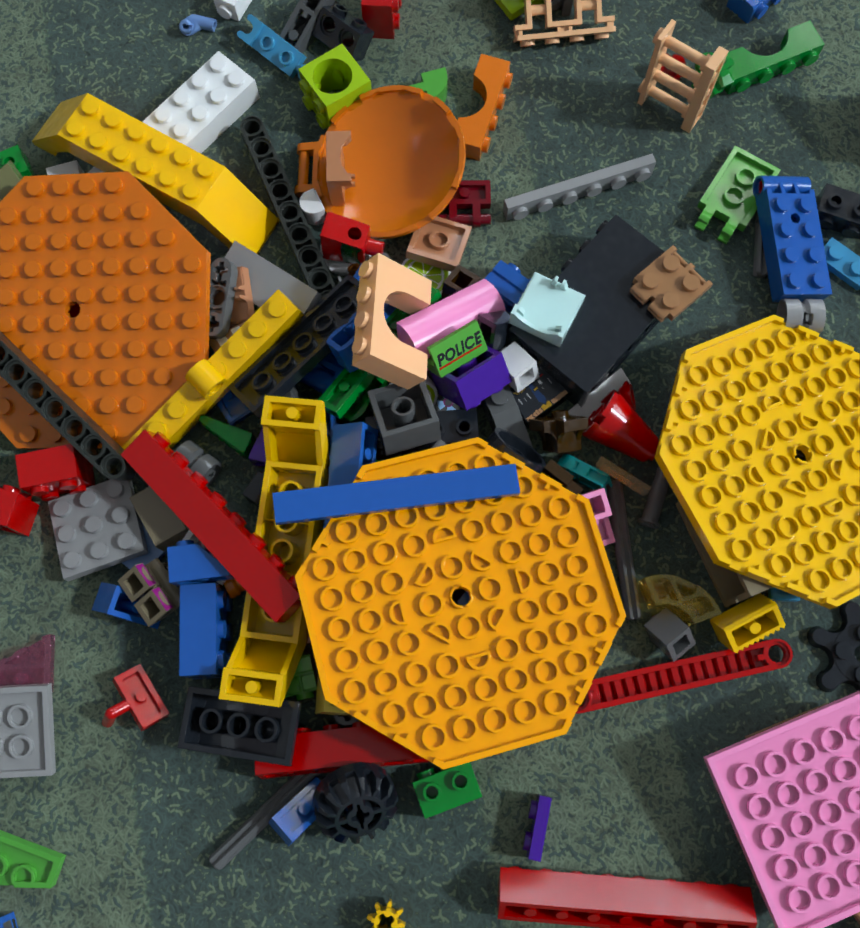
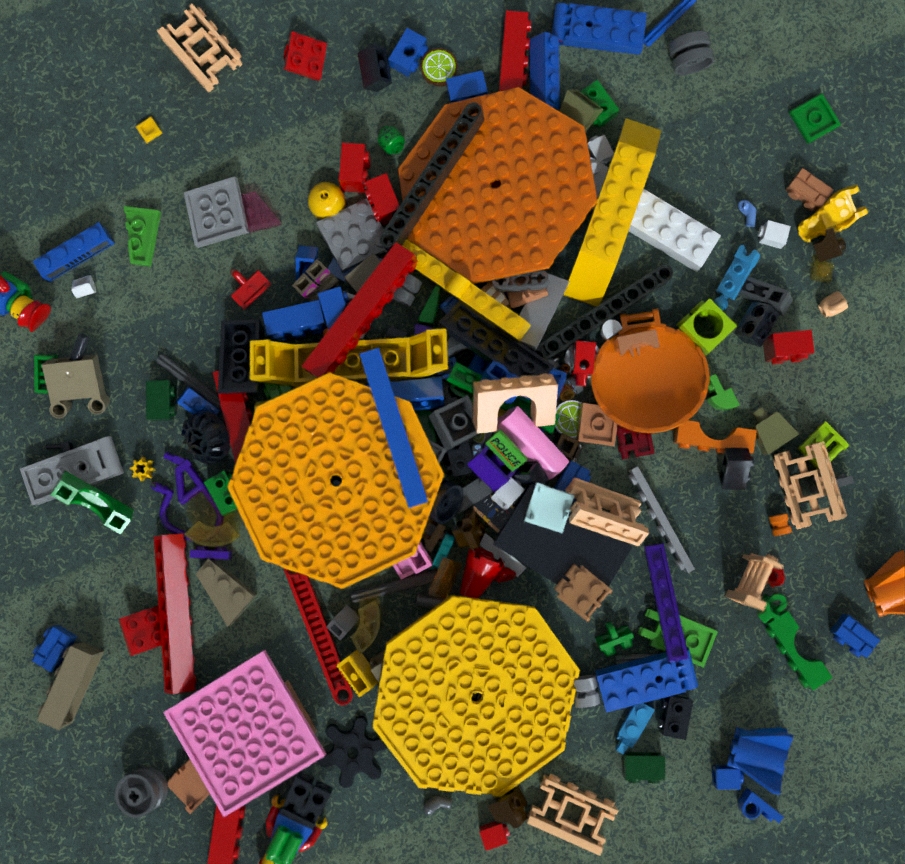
camera: 80 degrees right, 10 degrees up
(34, 561) = (326, 200): none -> yellow cylinder
(282, 872) = (160, 400): none -> dark green brick
(443, 859) = (184, 465): none -> dark purple piece
(484, 36) = (772, 431): none -> olive torso
(512, 818) = (212, 536): none -> clear yellow brick
(527, 84) = (735, 468): none -> black brick
(563, 240) = (618, 524): none -> light nougat fence
(599, 812) = (225, 590): none -> dark tan wedge
(606, 51) = (780, 524): none -> orange wheel
(694, 195) = (666, 603): none -> dark purple tile
(732, 260) = (614, 636): none -> green hips

